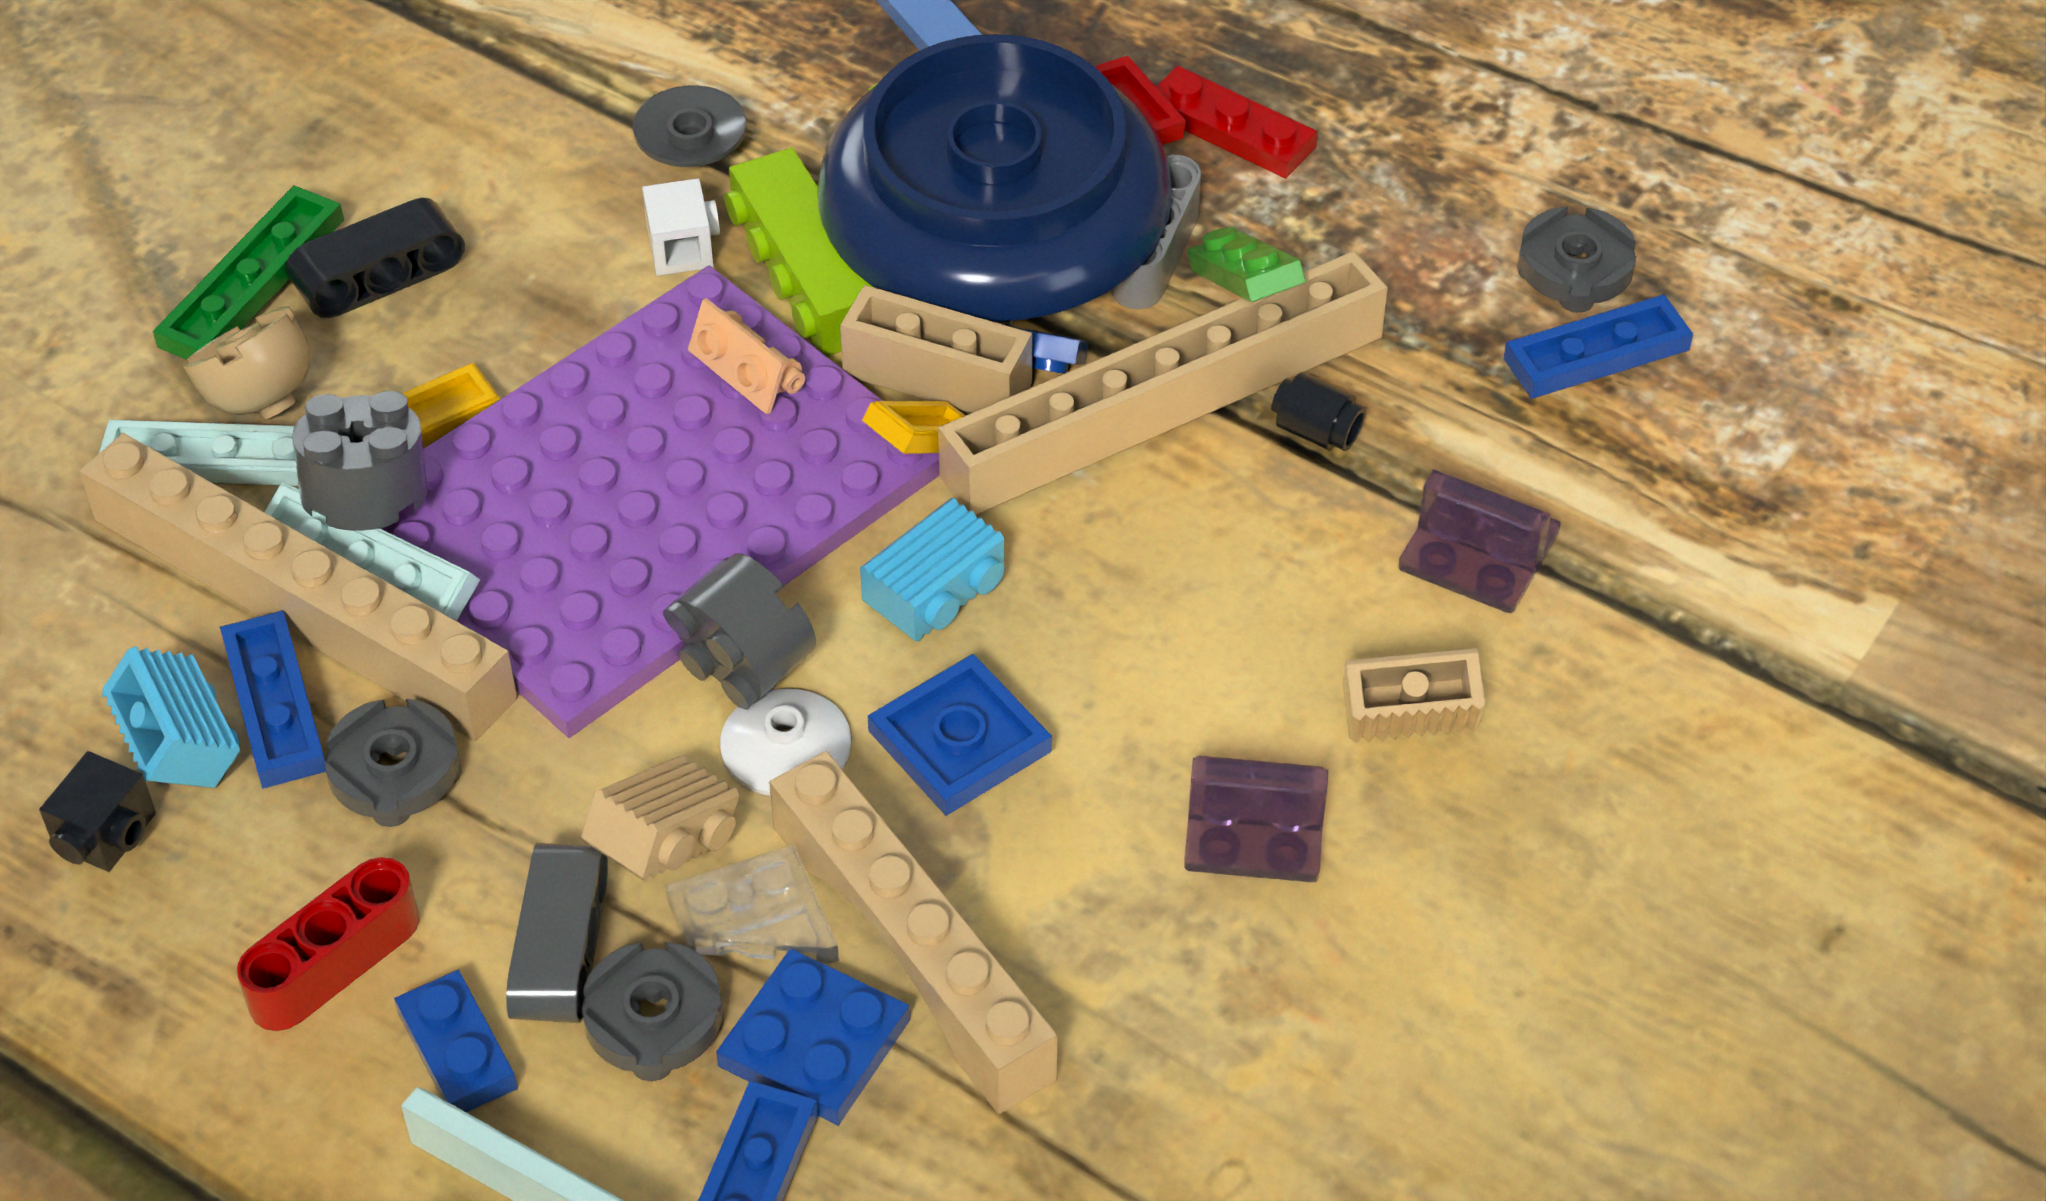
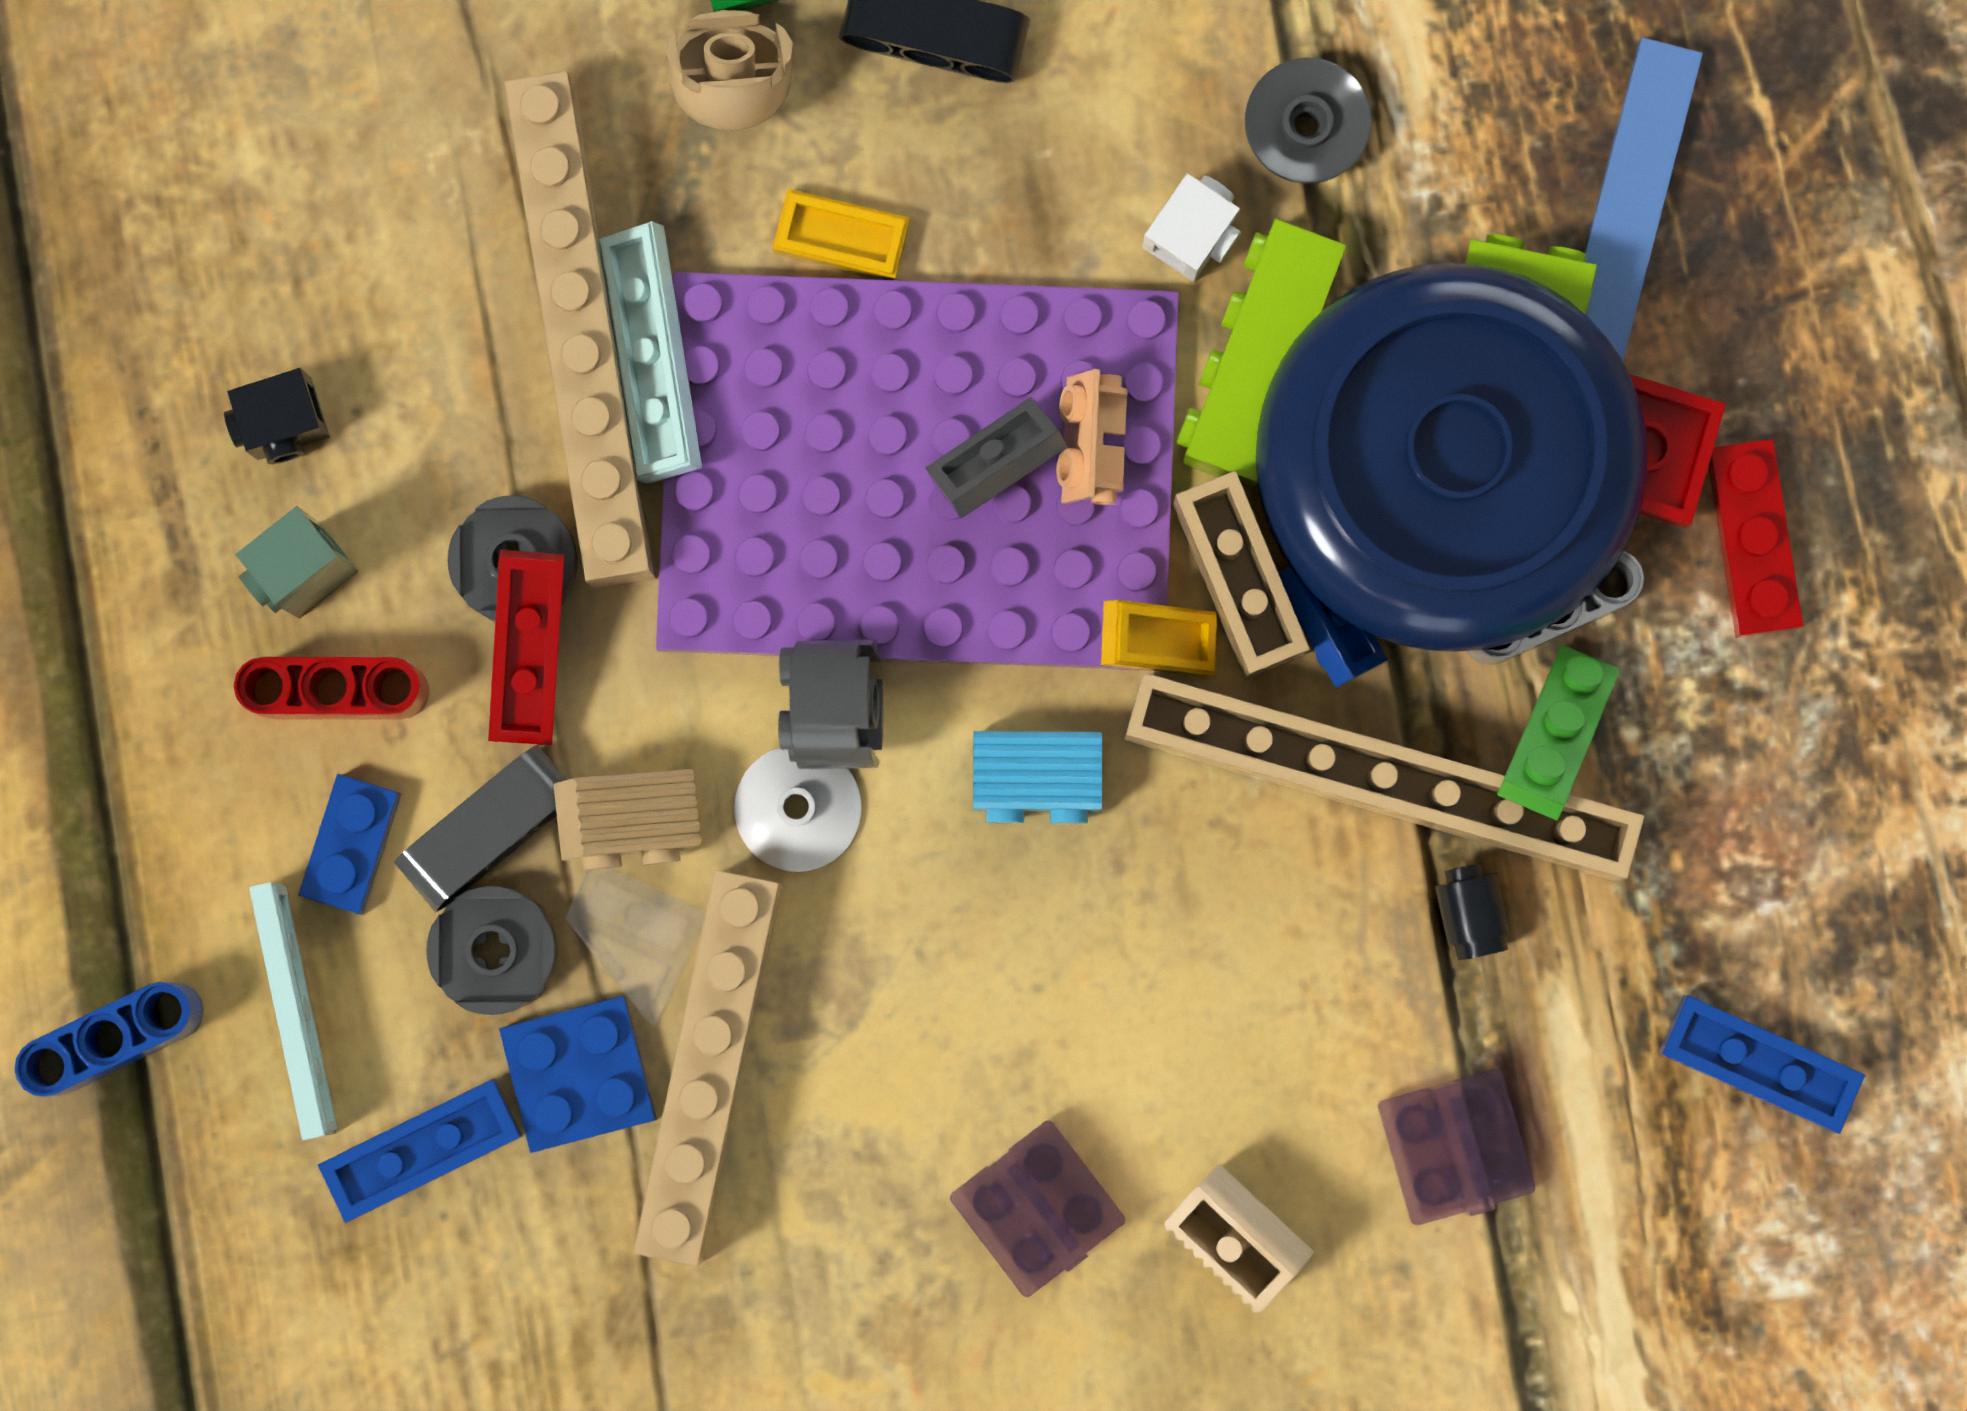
camera: 50 degrees right, 35 degrees up
(170, 718) = (386, 385): medium azure brick -> none
(214, 867) = (294, 564): none -> sand green brick
(218, 449) = (655, 128): light aqua tile -> none
(273, 699) = (480, 421): blue plate -> none
(359, 459) = (698, 246): dark grey brick -> none
(462, 781) = (526, 647): none -> red plate
(691, 408) = (996, 457): none -> dark grey plate
(959, 734) = (910, 934): blue plate -> none
(1570, 280) = (1881, 936): dark grey plate -> none

